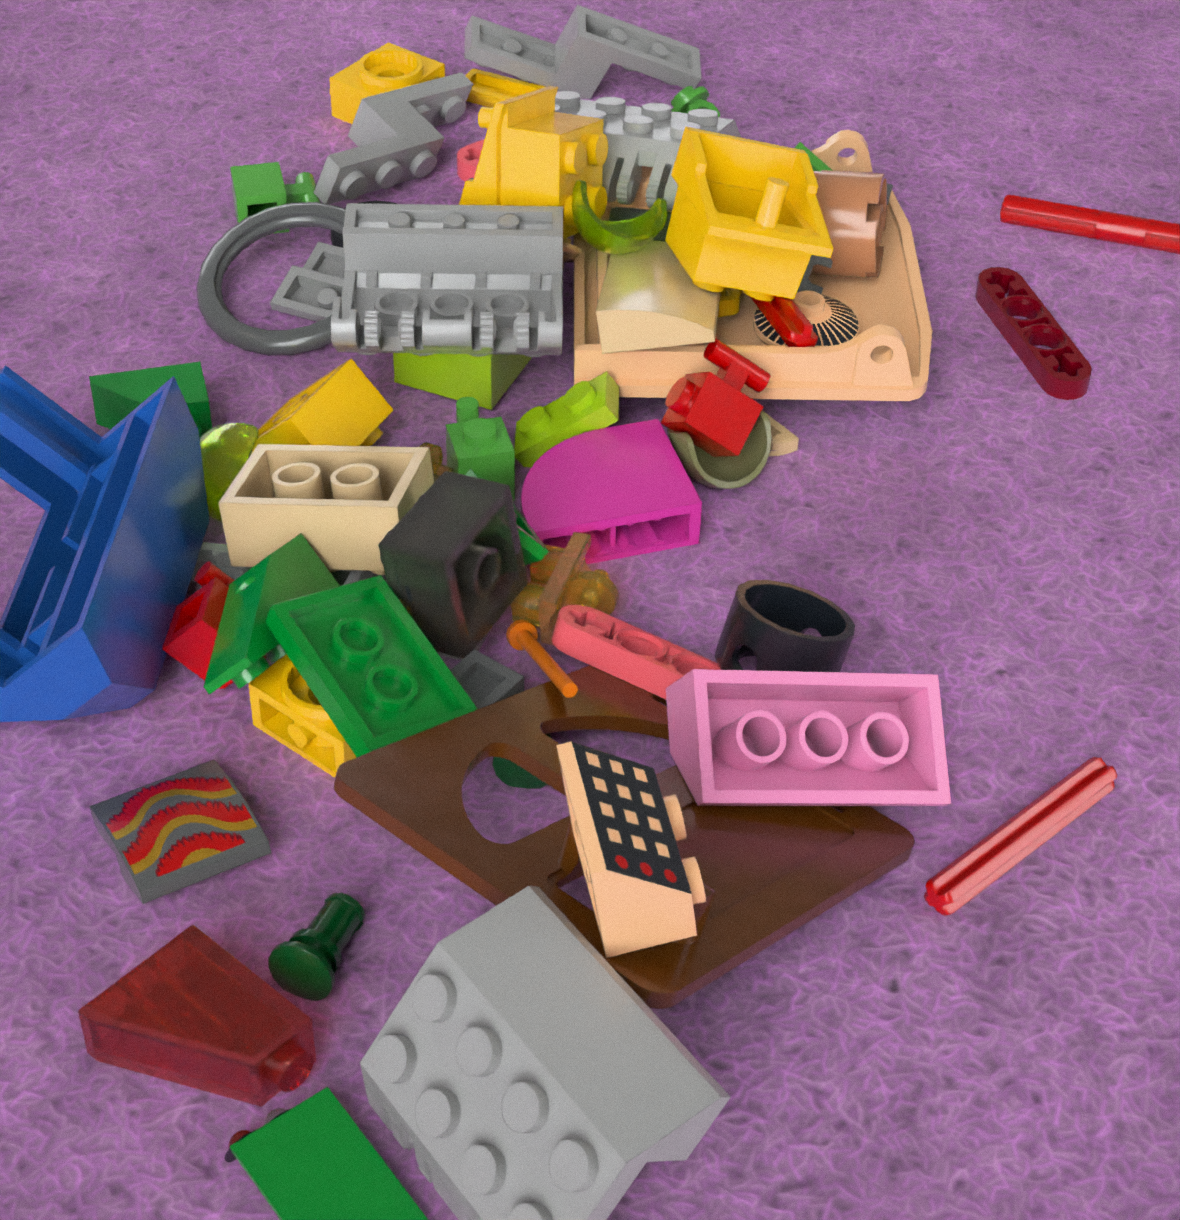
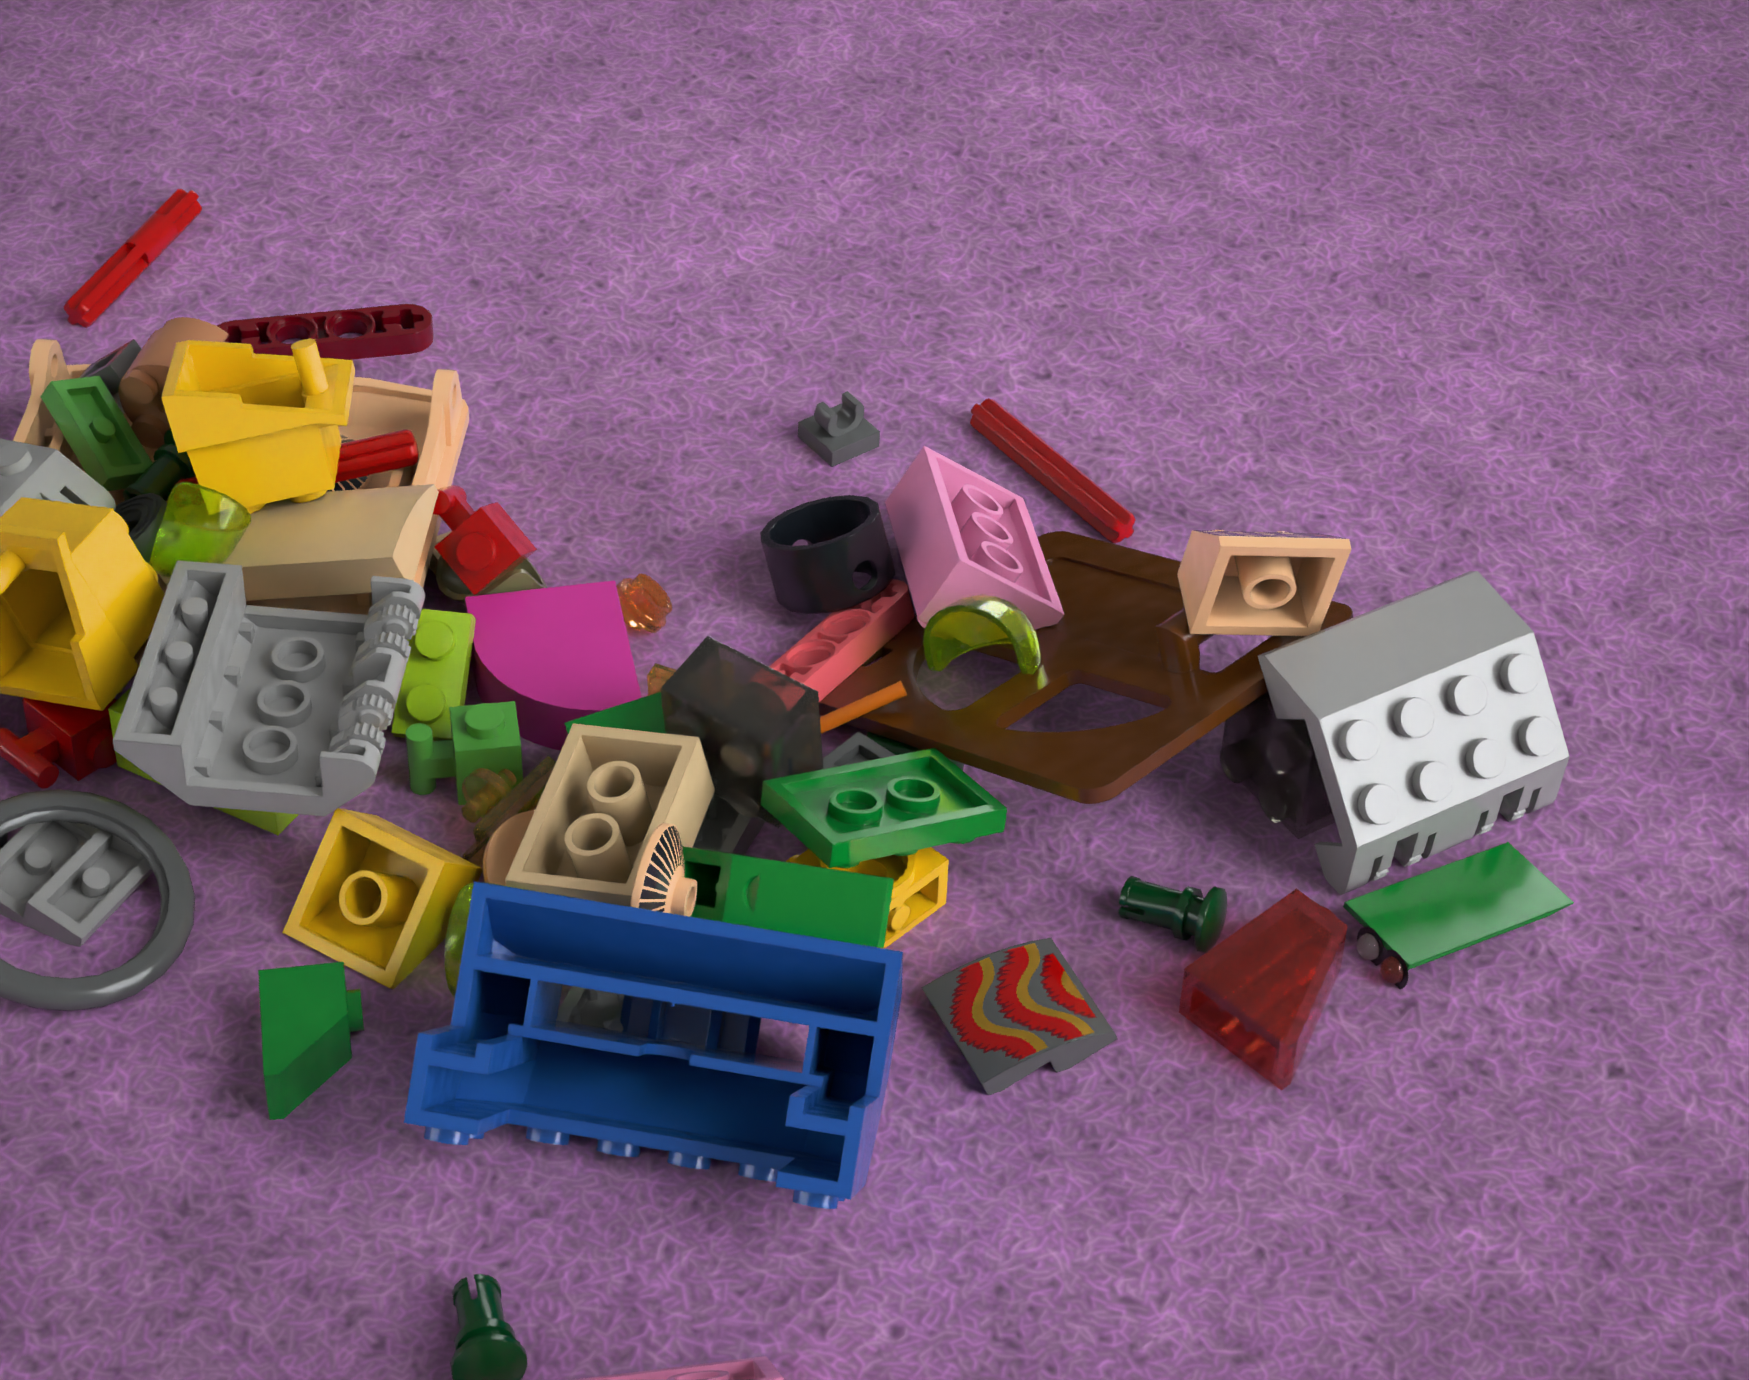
camera: 85 degrees left, 0 degrees up
(227, 515) = (661, 874): none -> light nougat dish
(638, 725) = (979, 623): none -> clear neon green helmet
(708, 543) = (643, 603): none -> clear orange plate
(1023, 663) = (839, 431): none -> dark grey tile

